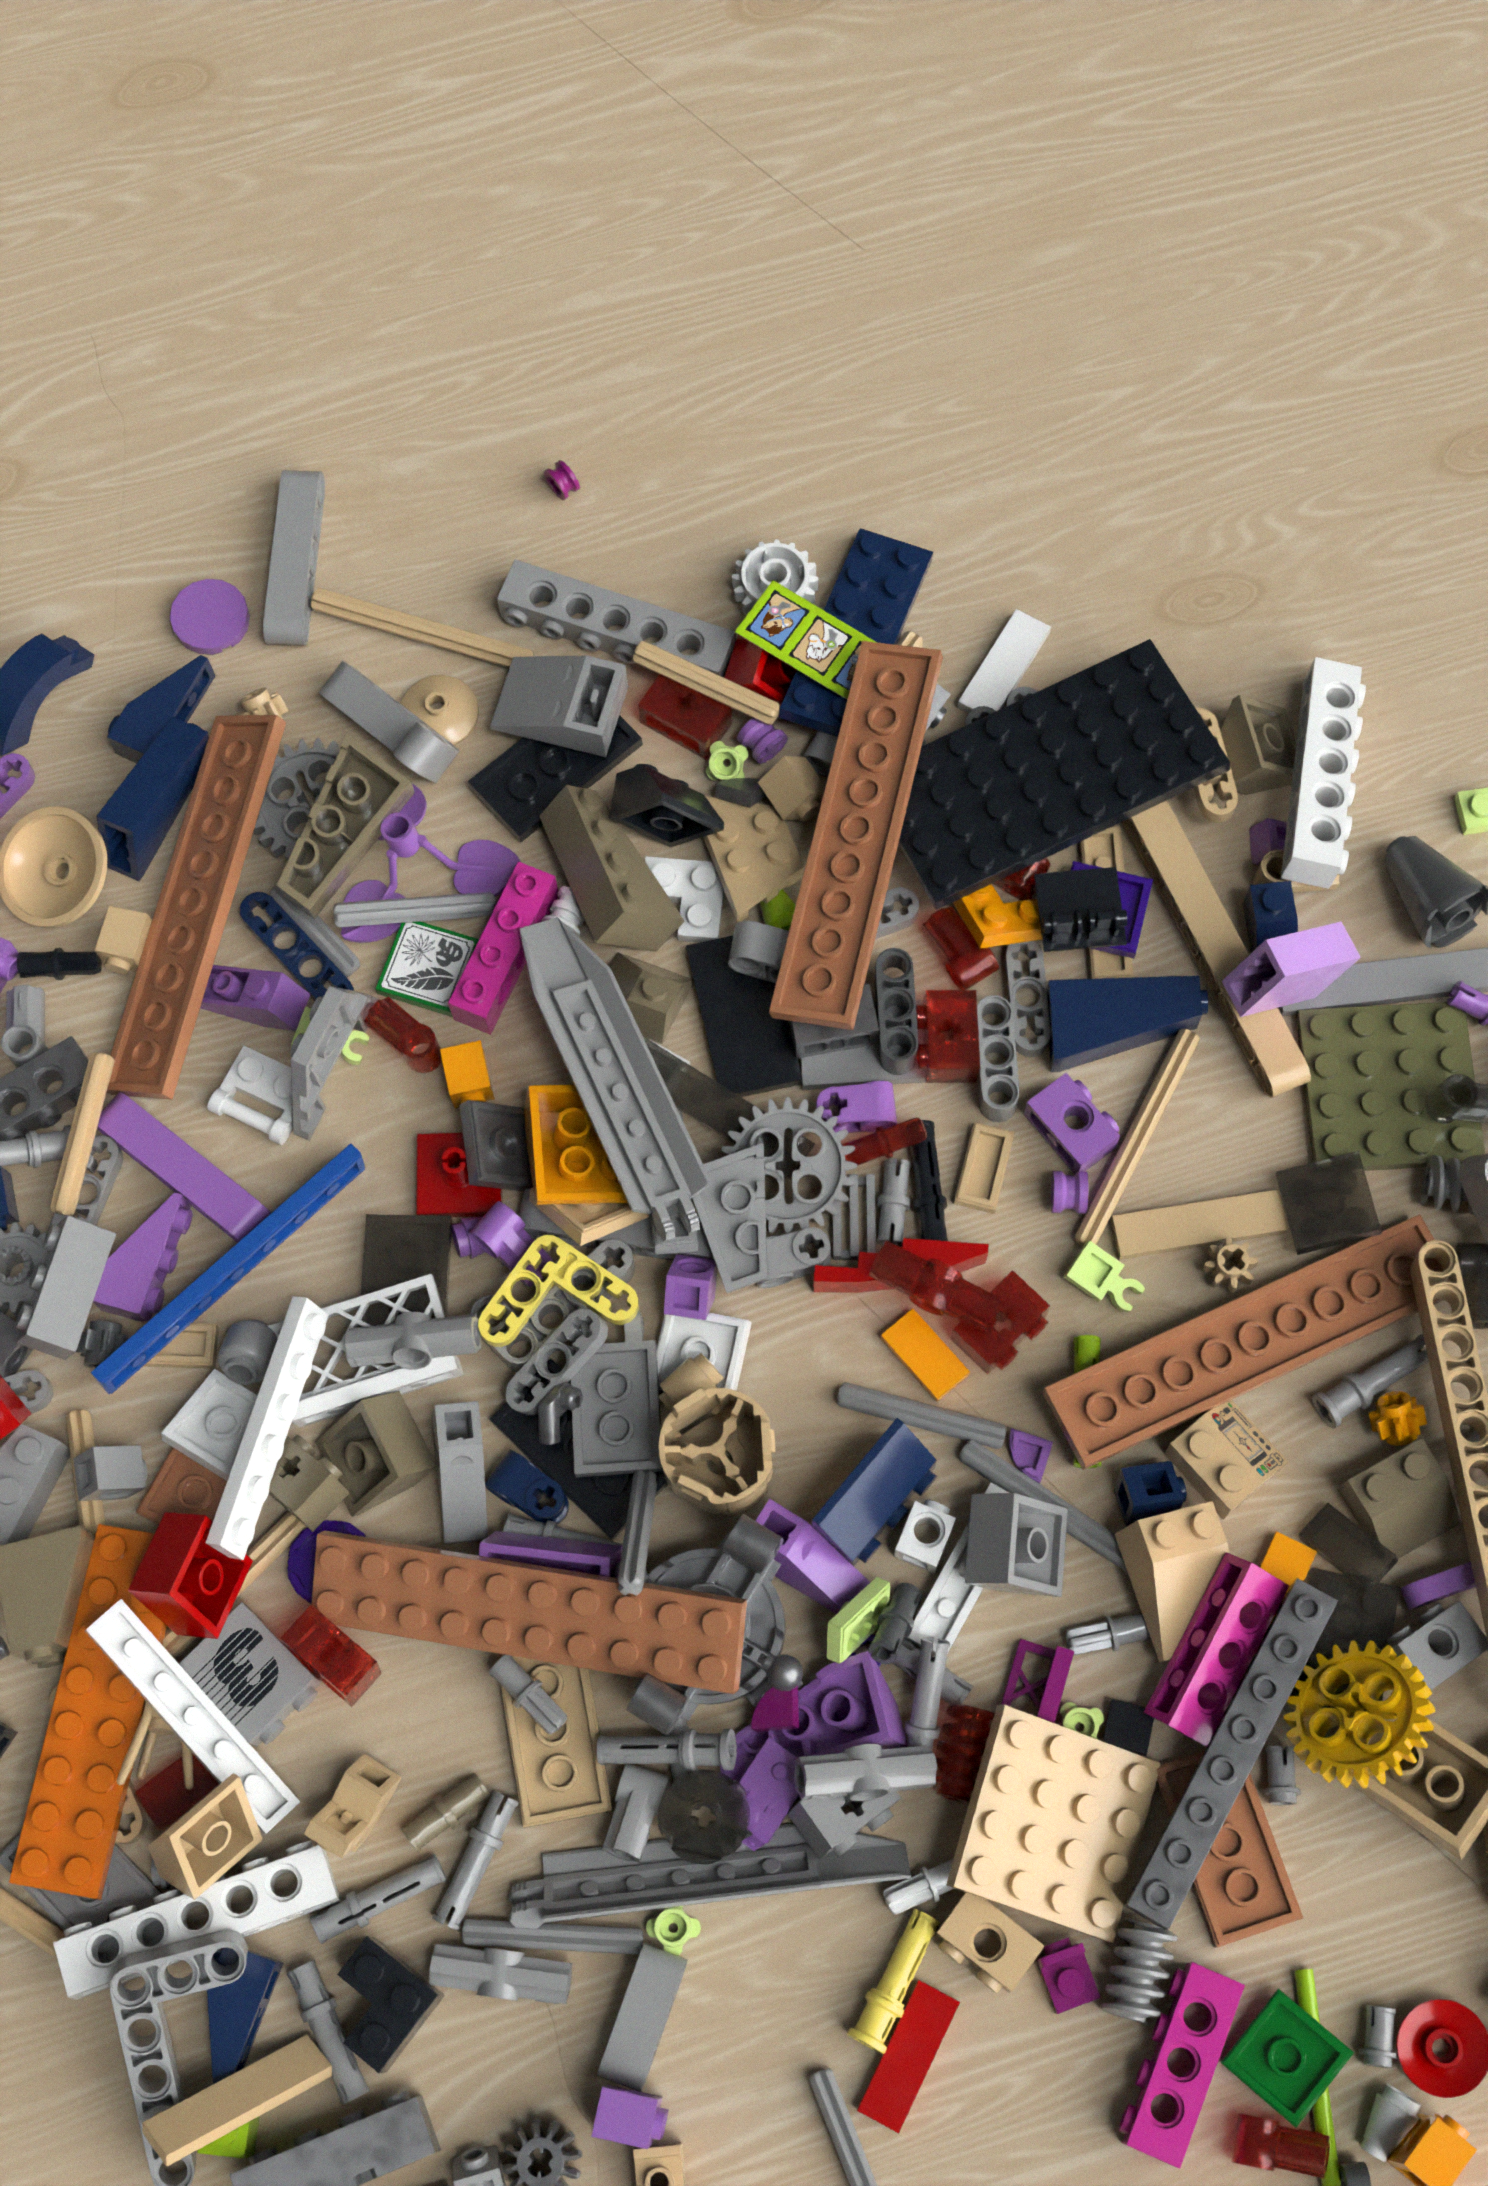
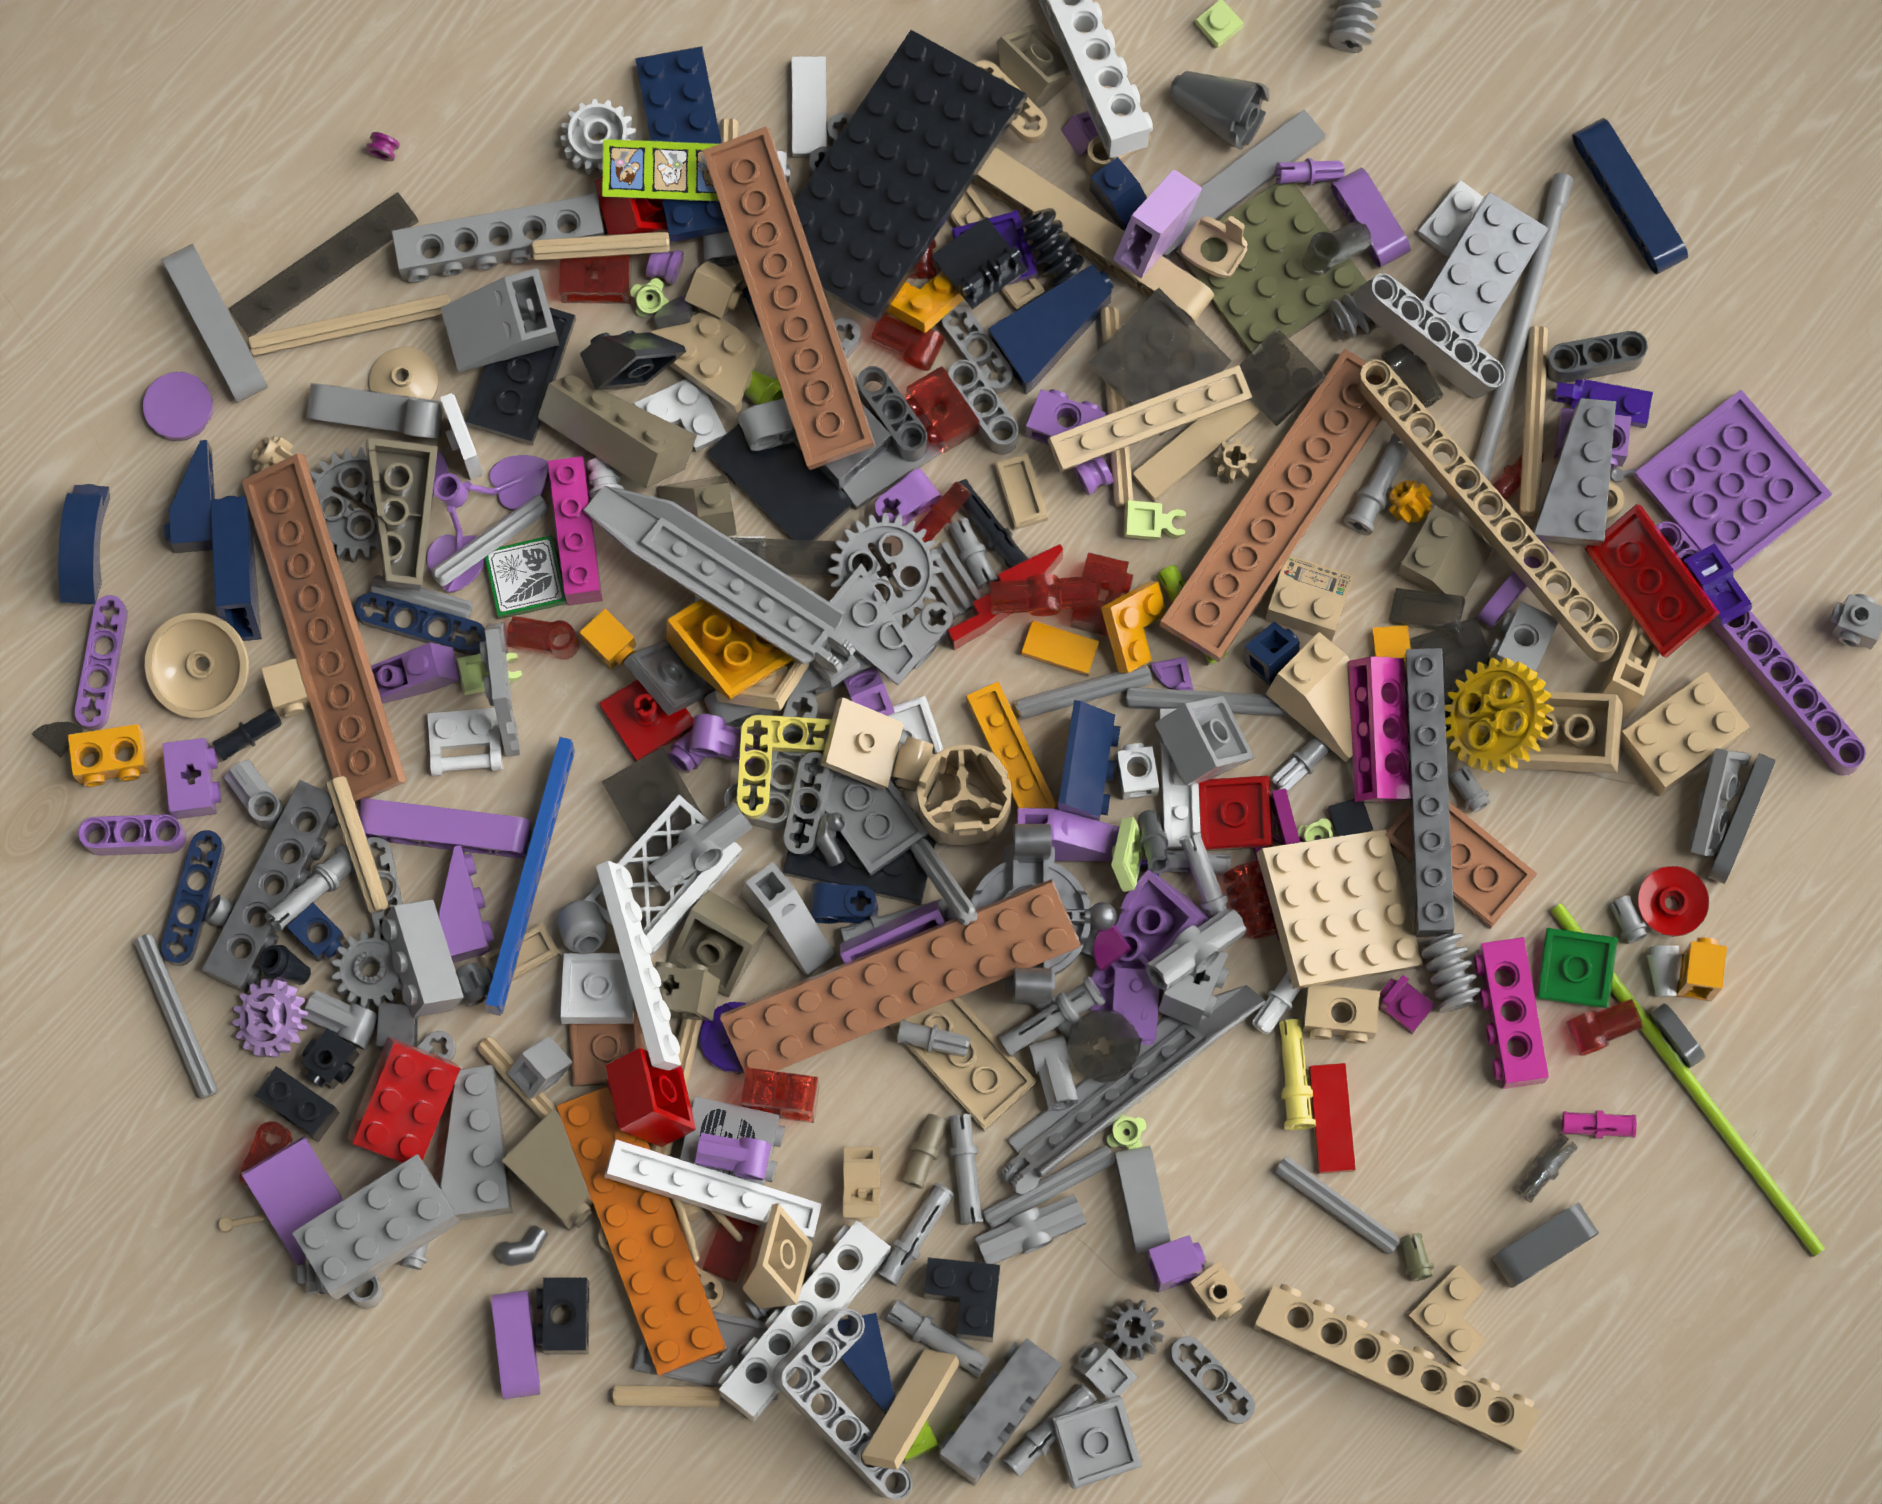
camera: 35 degrees left, 5 degrees up
(242, 1699) = (743, 1157): none -> medium lavender piece
(431, 560) = (322, 265): none -> clear smoke tile
(451, 791) = (459, 436): none -> white plate
(648, 1332) = (862, 743): none -> plate
(805, 1431) = (1010, 747): none -> light orange plate
(1005, 1645) = (1235, 813): none -> red tile
(1008, 1367) = (1126, 623): none -> light orange plate
(1163, 1167) = (1149, 418): none -> tan plate
(1165, 932) = (1052, 245): none -> black piece
(1210, 1115) = (1157, 352): none -> clear smoke plate
(1345, 1007) = (1230, 233): none -> tan piece

